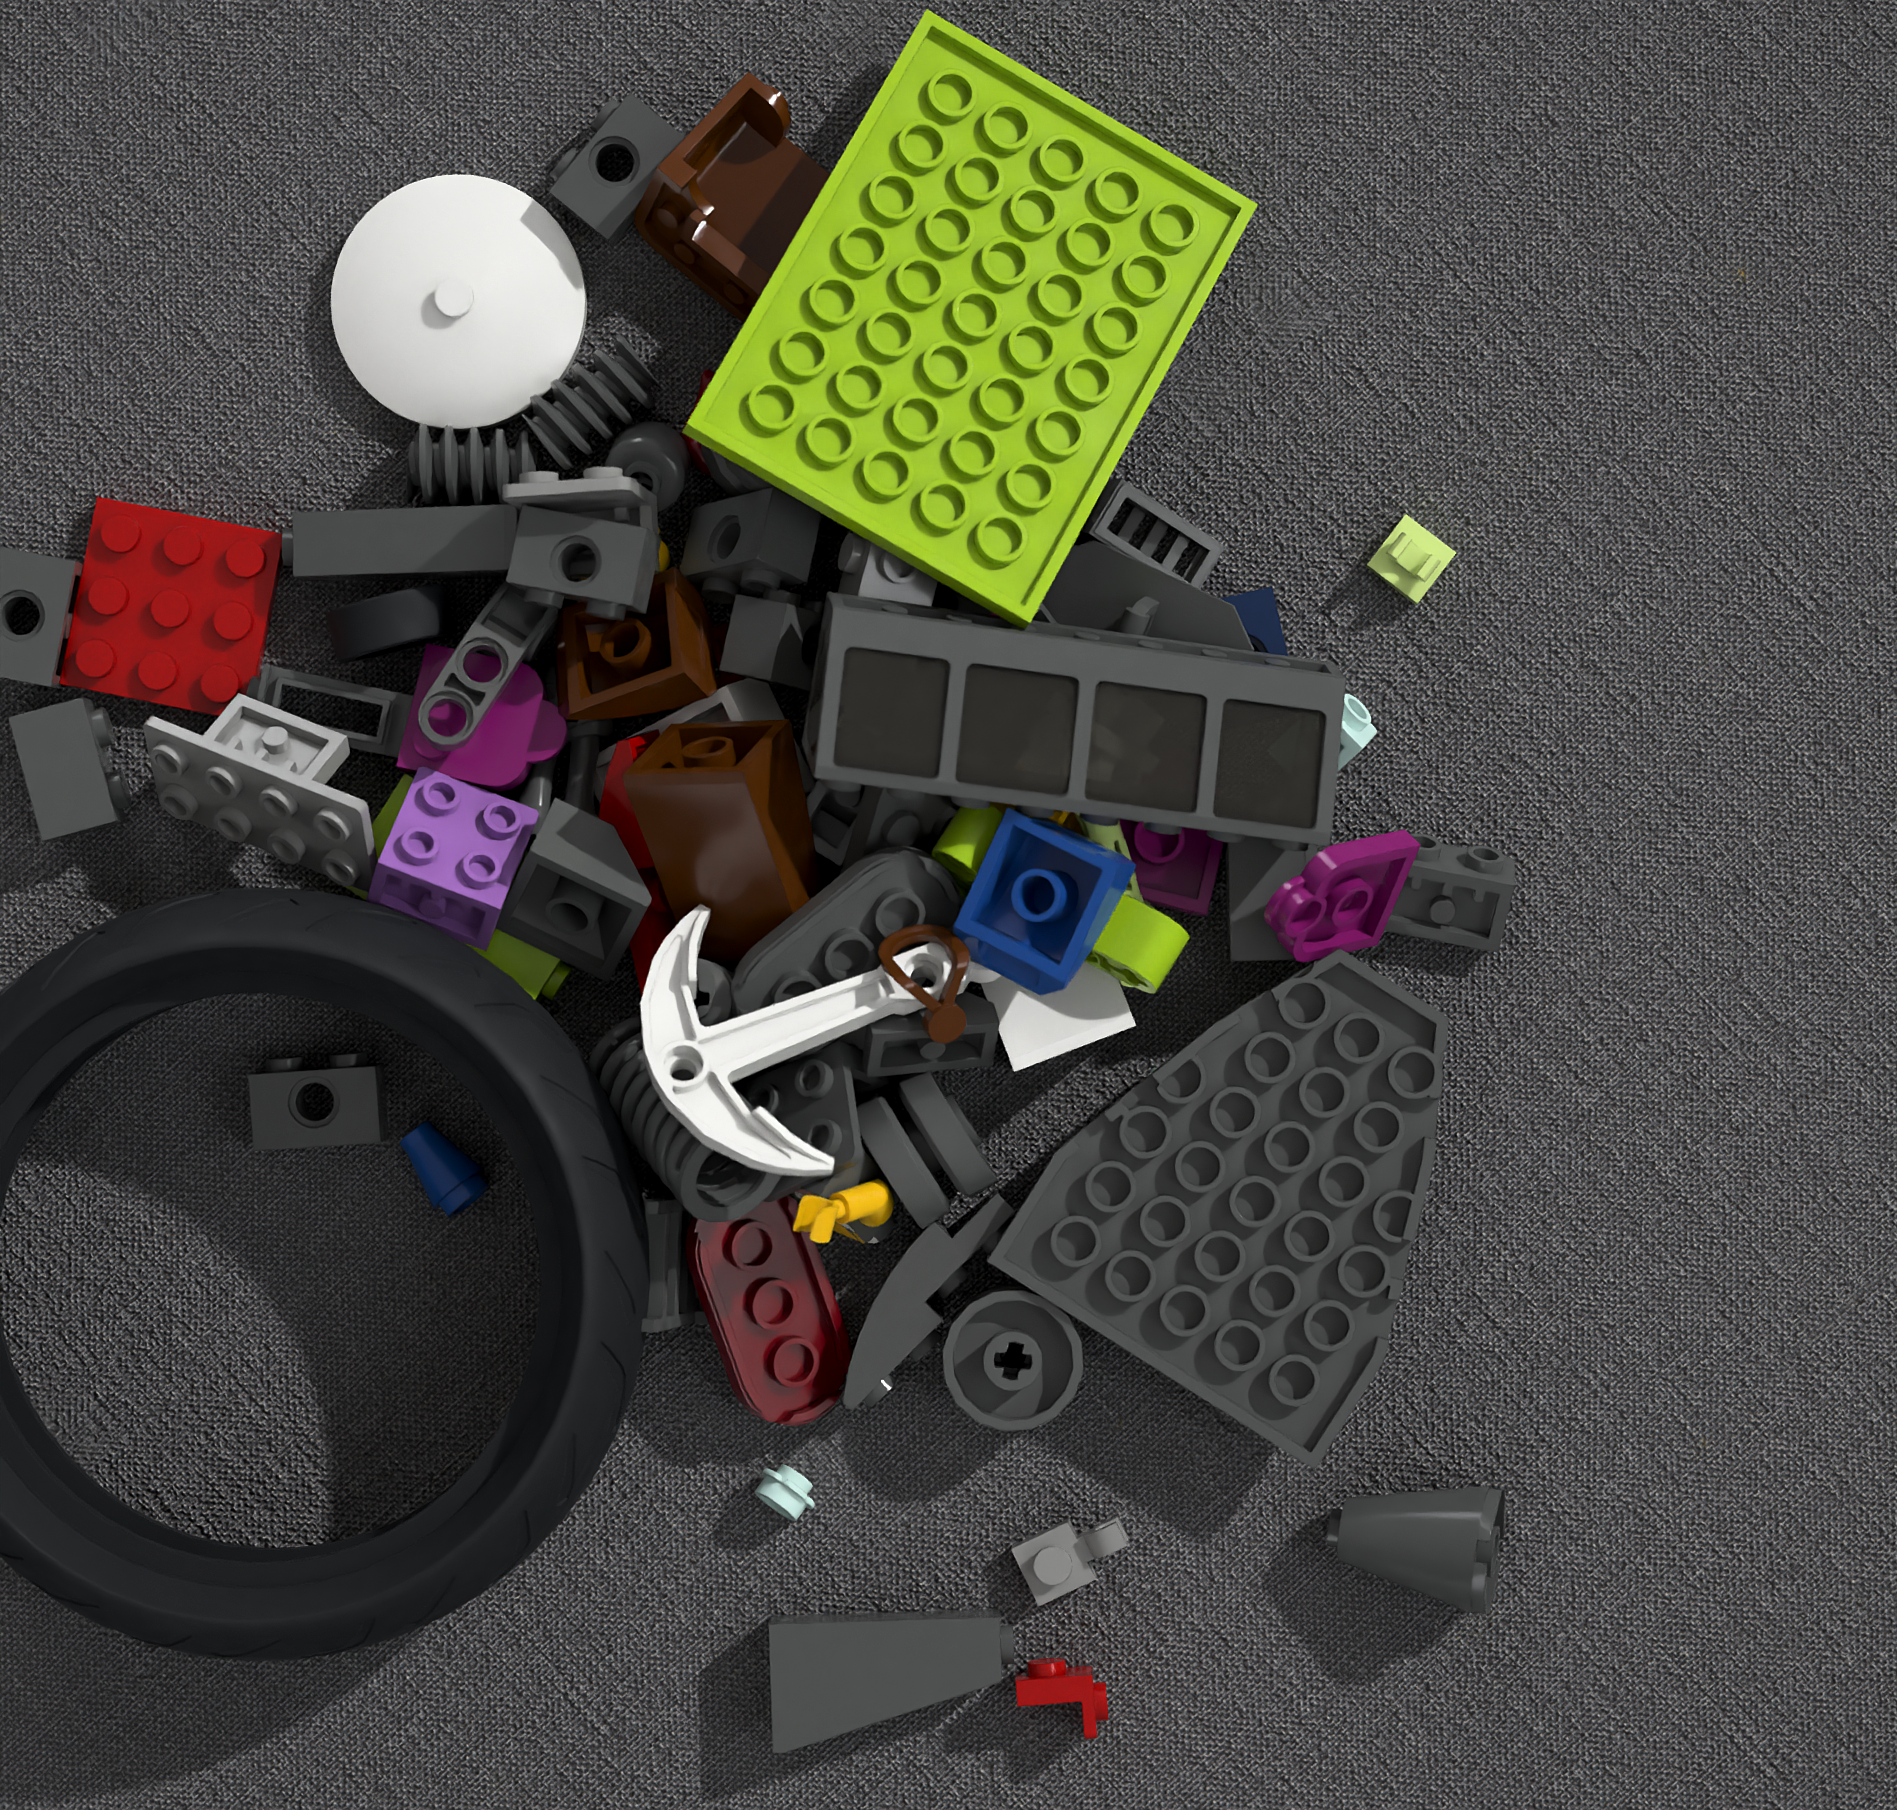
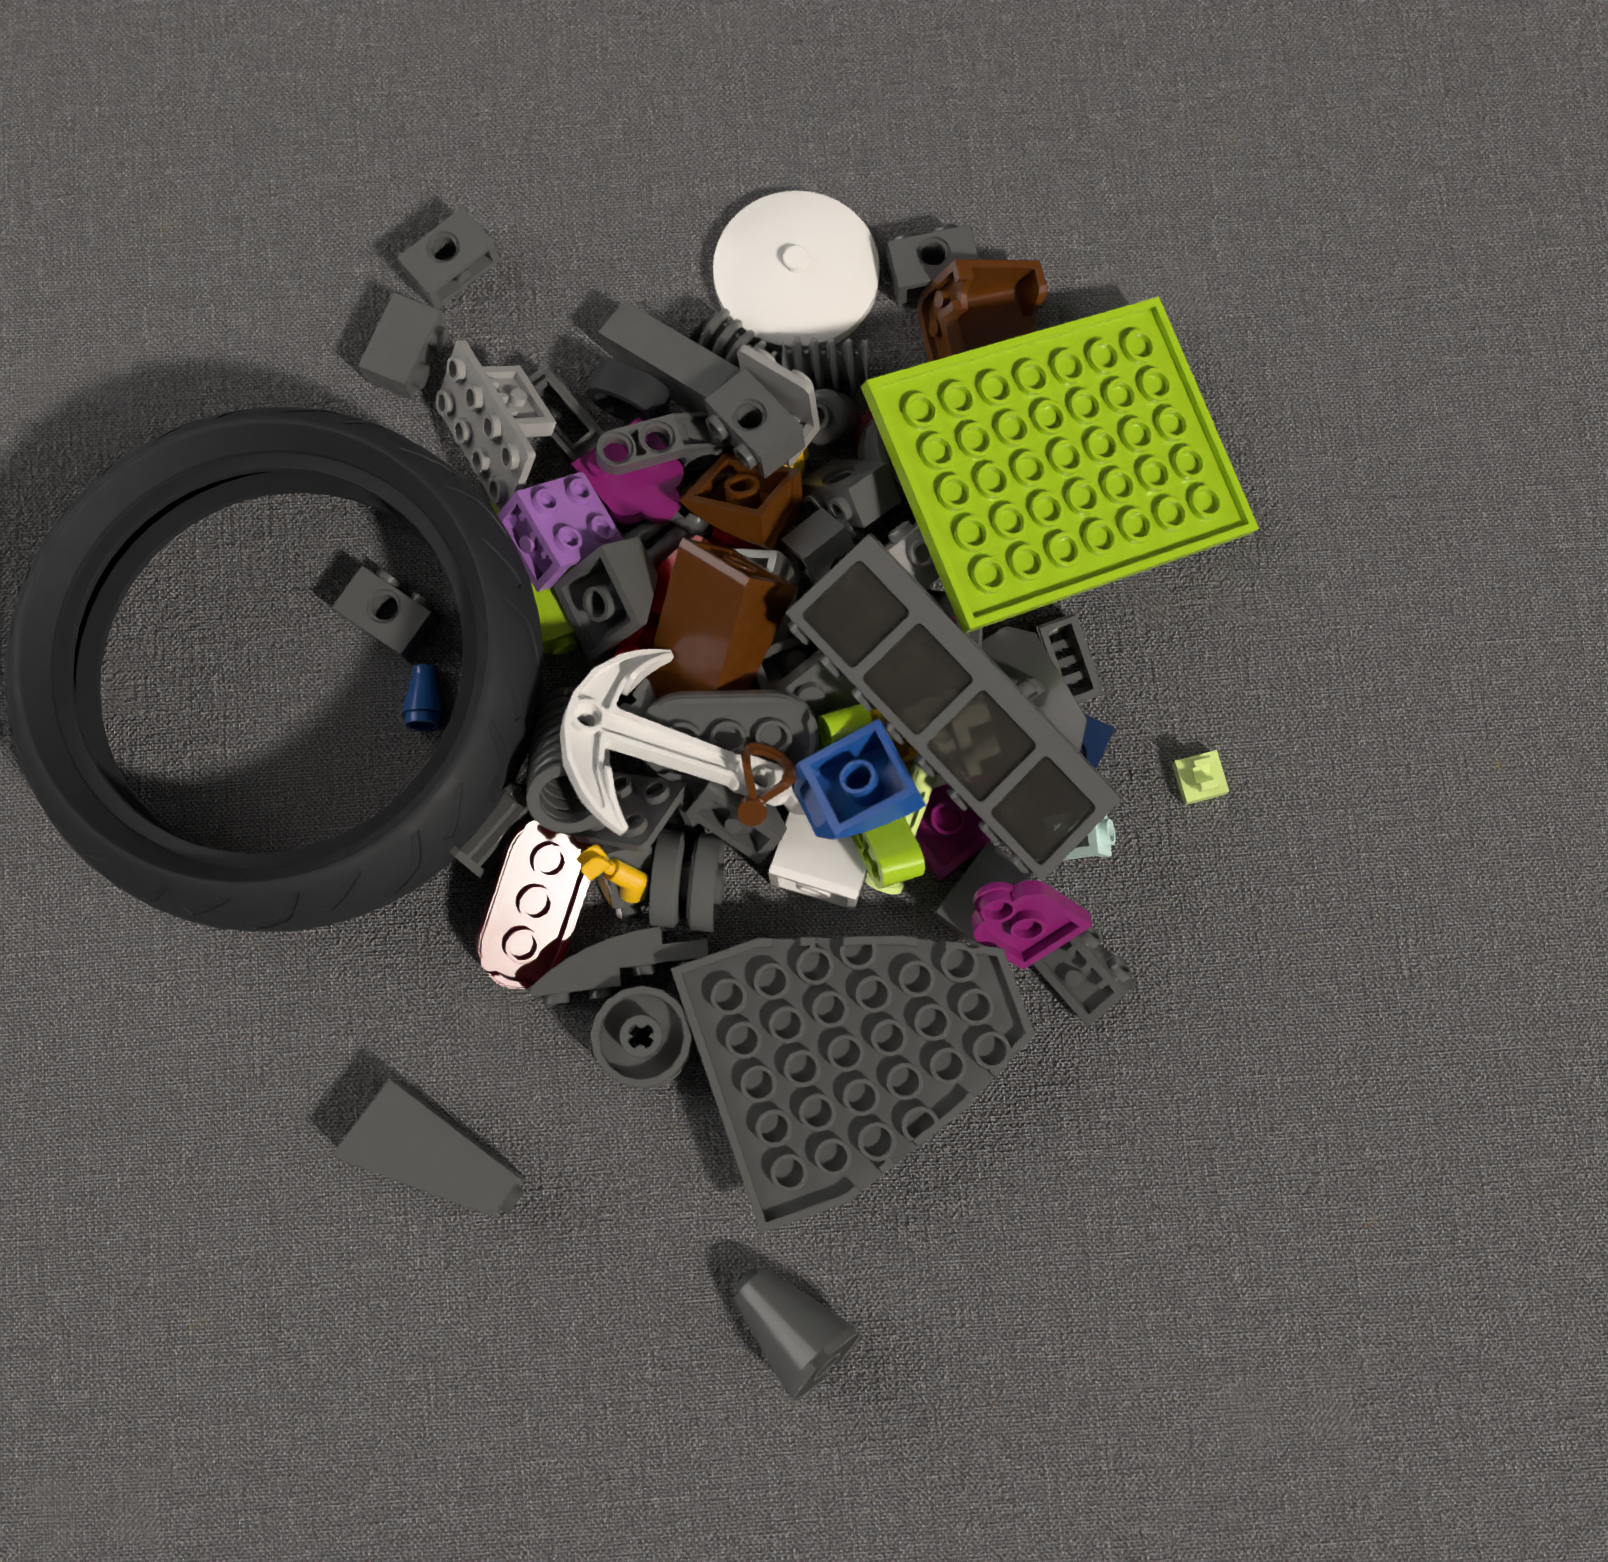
camera: 35 degrees right, 10 degrees down
(171, 607) = (524, 307): red plate -> none
(785, 1491) = (461, 1016): light aqua plate -> none
(1054, 1683) = (519, 1241): red bracket -> none
(1060, 1559) = (580, 1175): light grey plate -> none

